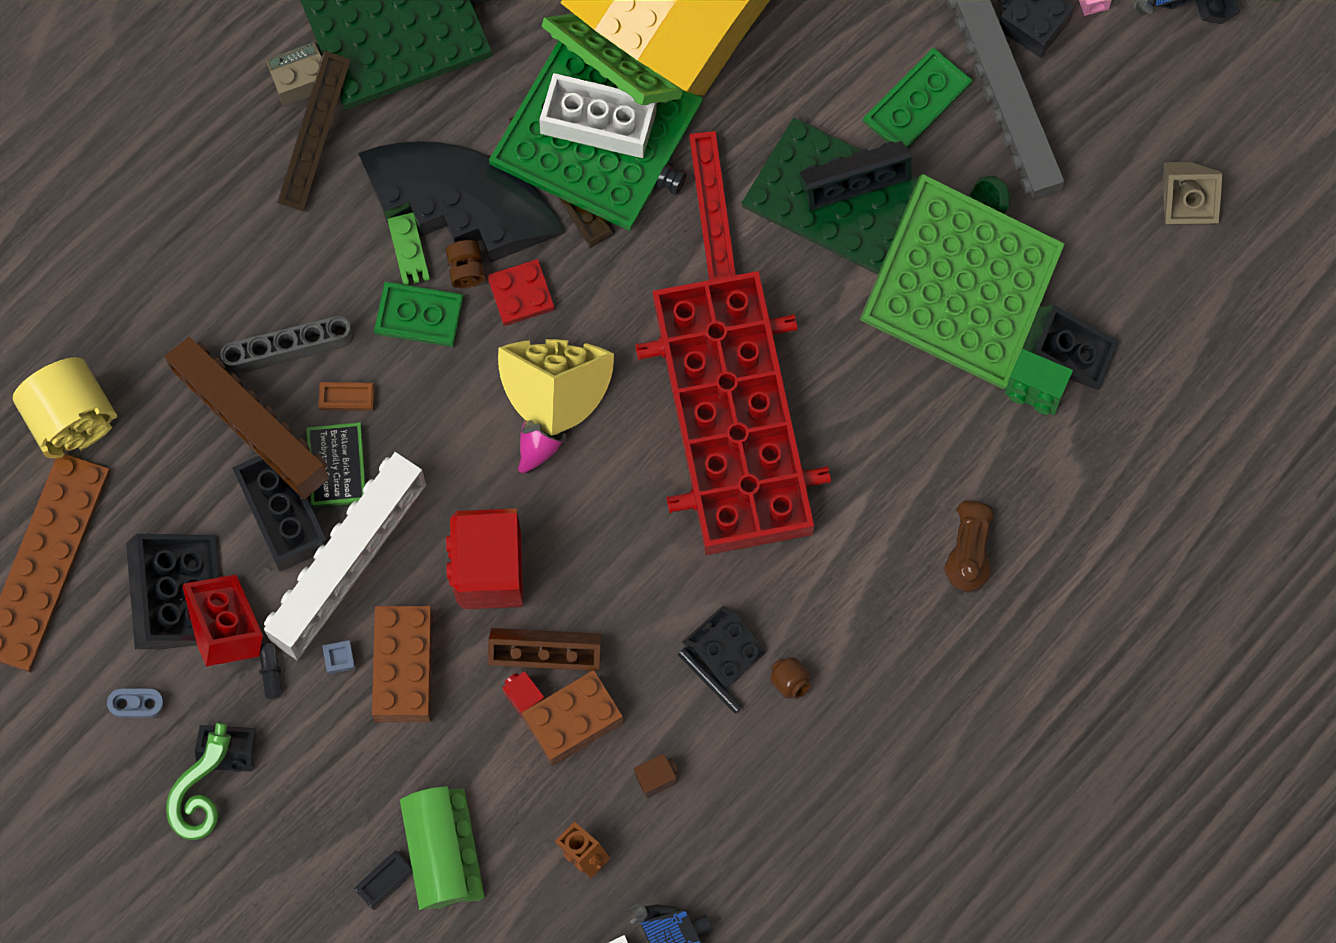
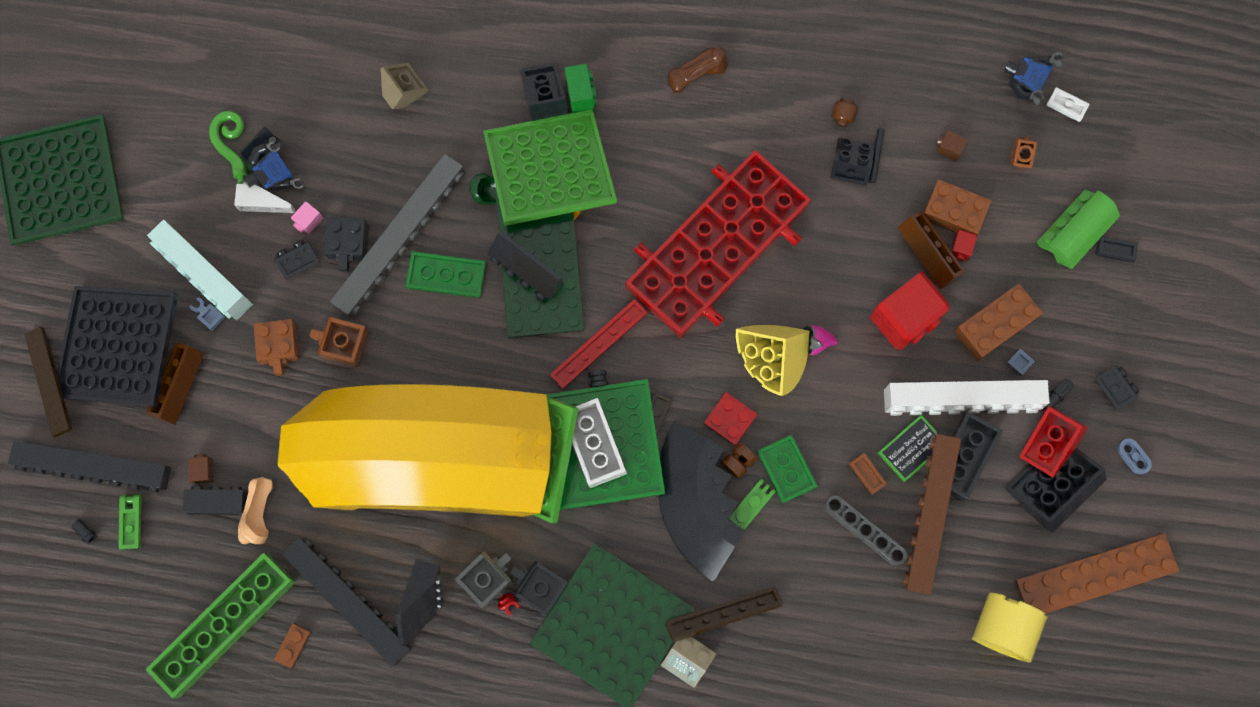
camera: 125 degrees left, 5 degrees up
(215, 751) = (1133, 383): bright green plant -> none

